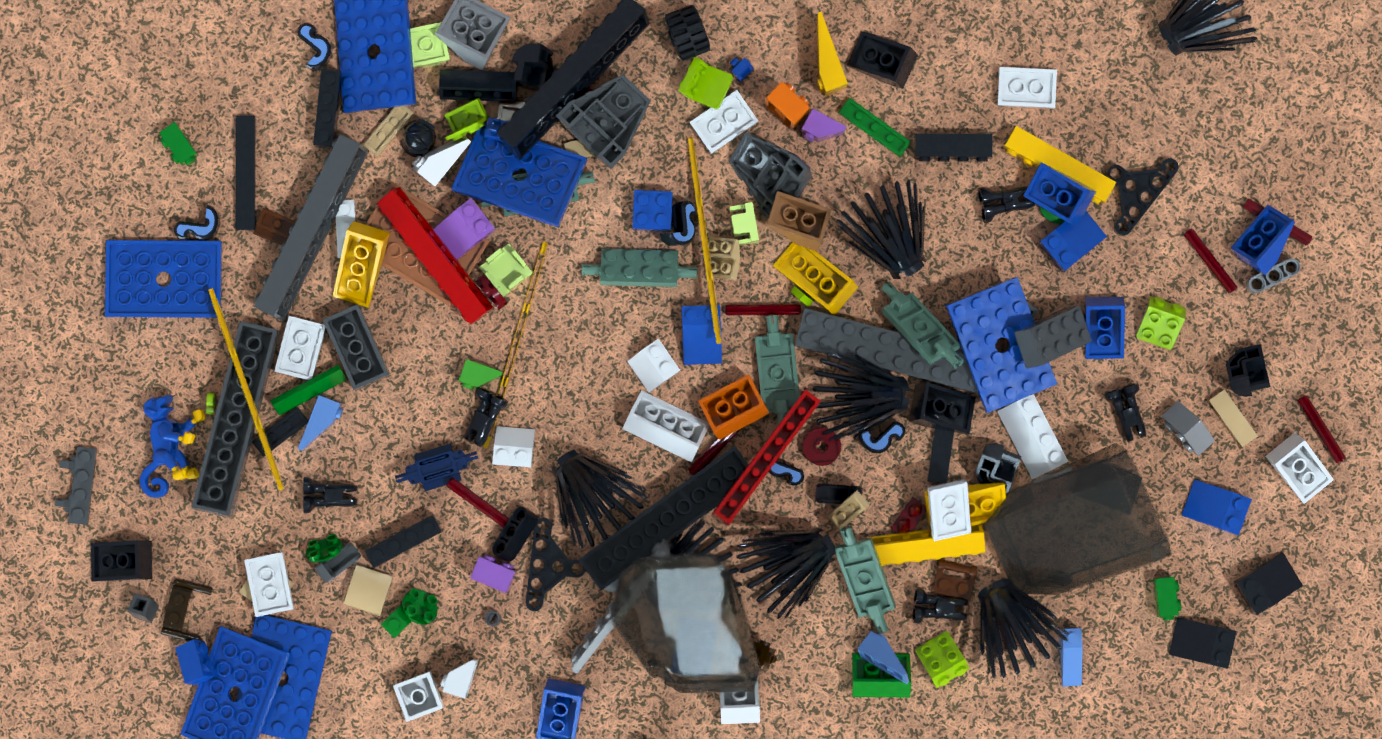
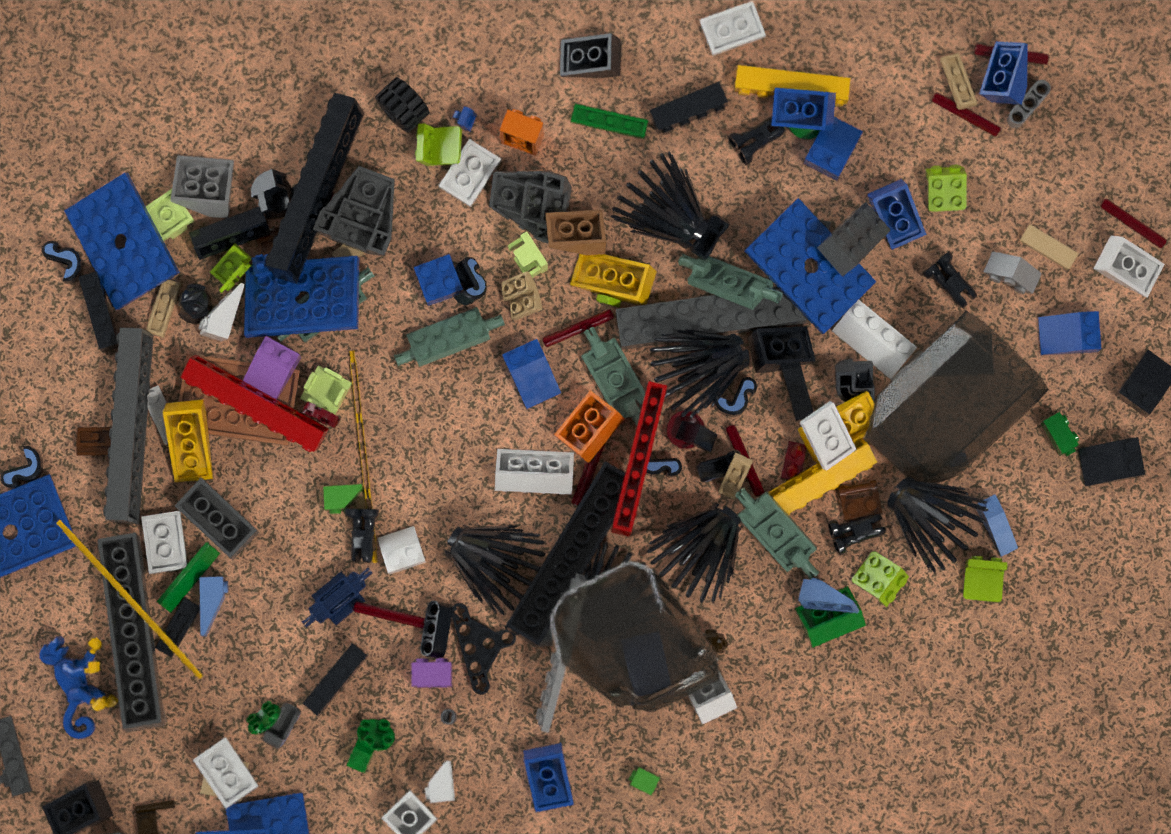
camera: 25 degrees left, 5 degrees down
(210, 403) = (101, 627): lime tile -> none
(245, 172) = (47, 402): black tile -> none
(332, 495) = (251, 665): black piece -> none
(368, 590) = (321, 740): tan slope -> none
(653, 365) = (499, 420): white slope -> none
(704, 240) = (498, 287): yellow piece -> none
(821, 127) = (561, 140): medium lavender slope -> none
(828, 457) = (696, 435): none -> black slope
(830, 72) = (547, 85): yellow slope -> none
(864, 482) = (738, 445): none -> dark red axle
(912, 284) = (709, 239): none -> black animal
(1037, 701) = (984, 579): none -> lime bracket
(1143, 184) = (876, 70): black beam -> none
(1216, 227) = (958, 81): none -> tan tile
(1247, 371) = (1043, 197): black brick -> none

